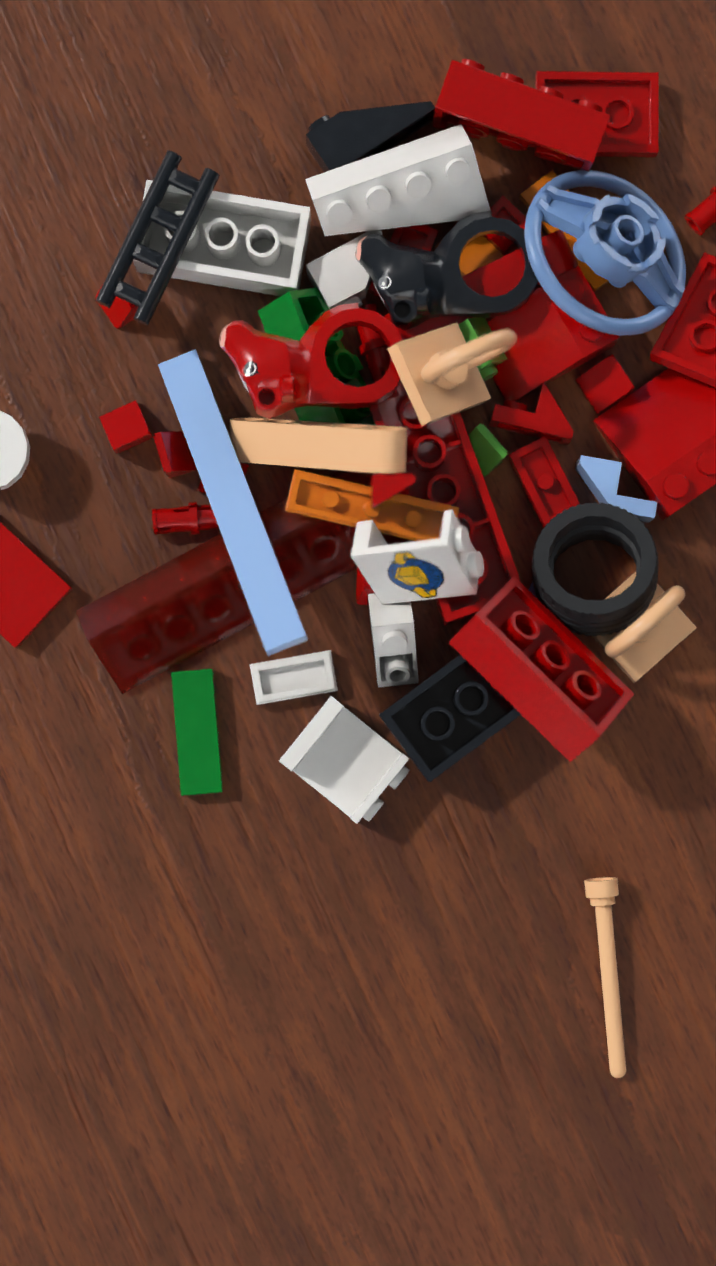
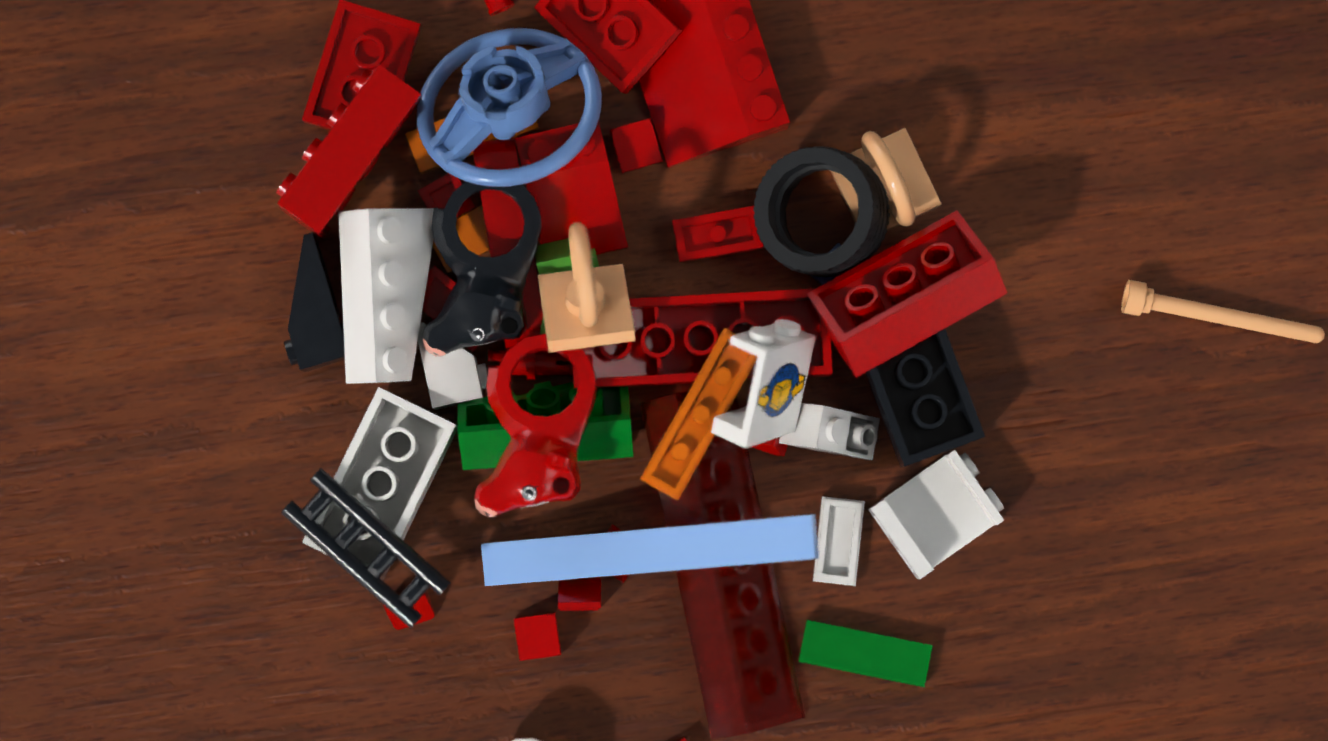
camera: 75 degrees left, 0 degrees up
(184, 519) = (649, 604): red pin -> none
(320, 444) = (621, 447): light nougat beam -> none
(388, 485) = (687, 391): red slope -> none
(487, 449) = (668, 282): bright green slope -> none
(545, 421) = (657, 217): red slope -> none
(603, 480) = (733, 175): light blue slope -> none

